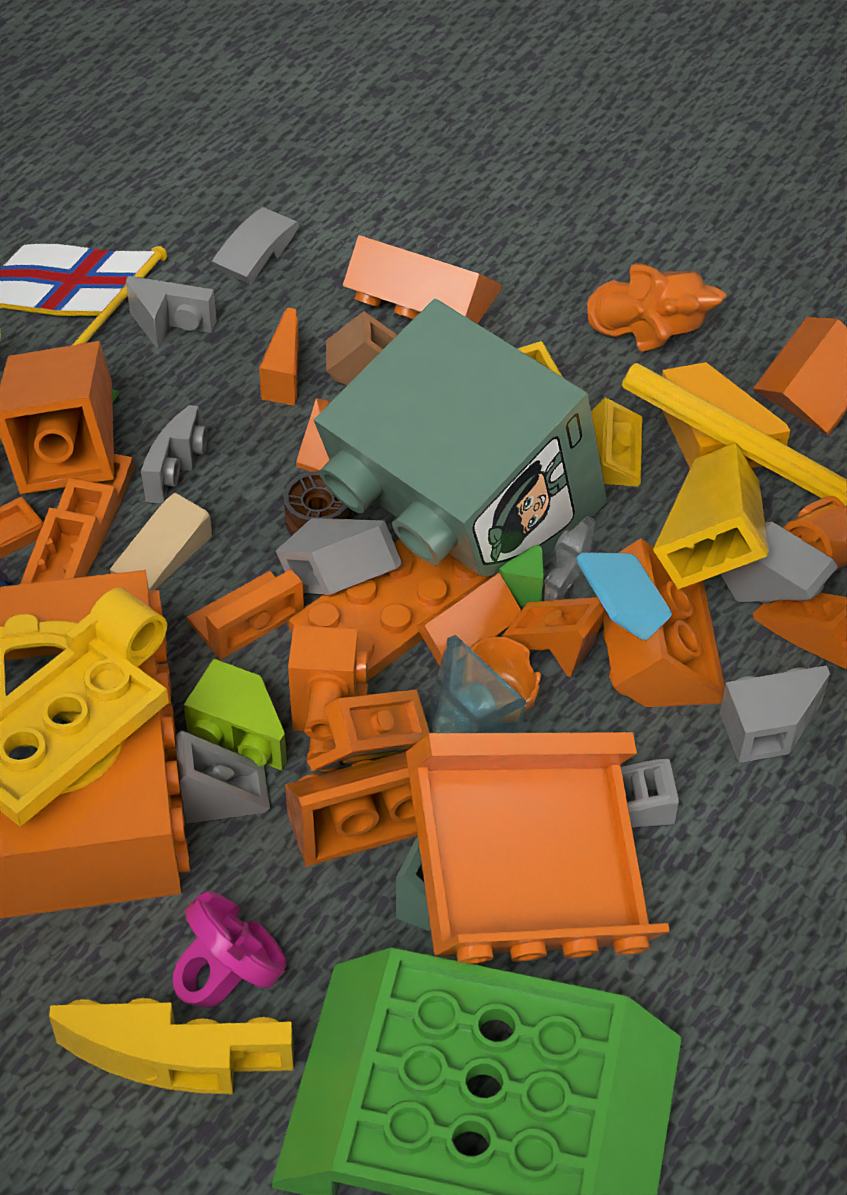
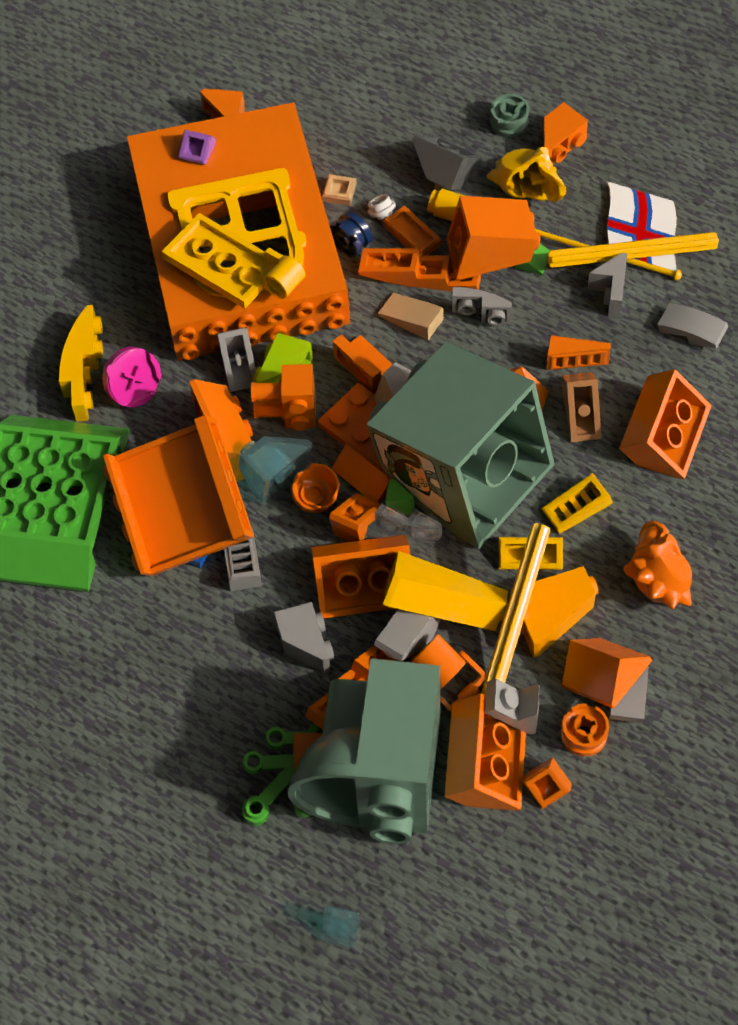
camera: 90 degrees right, 10 degrees up
(113, 282) = (634, 249): none -> yellow axle
(372, 727) = (257, 415): orange panel -> none
(625, 591) = (361, 533): medium azure slope -> none

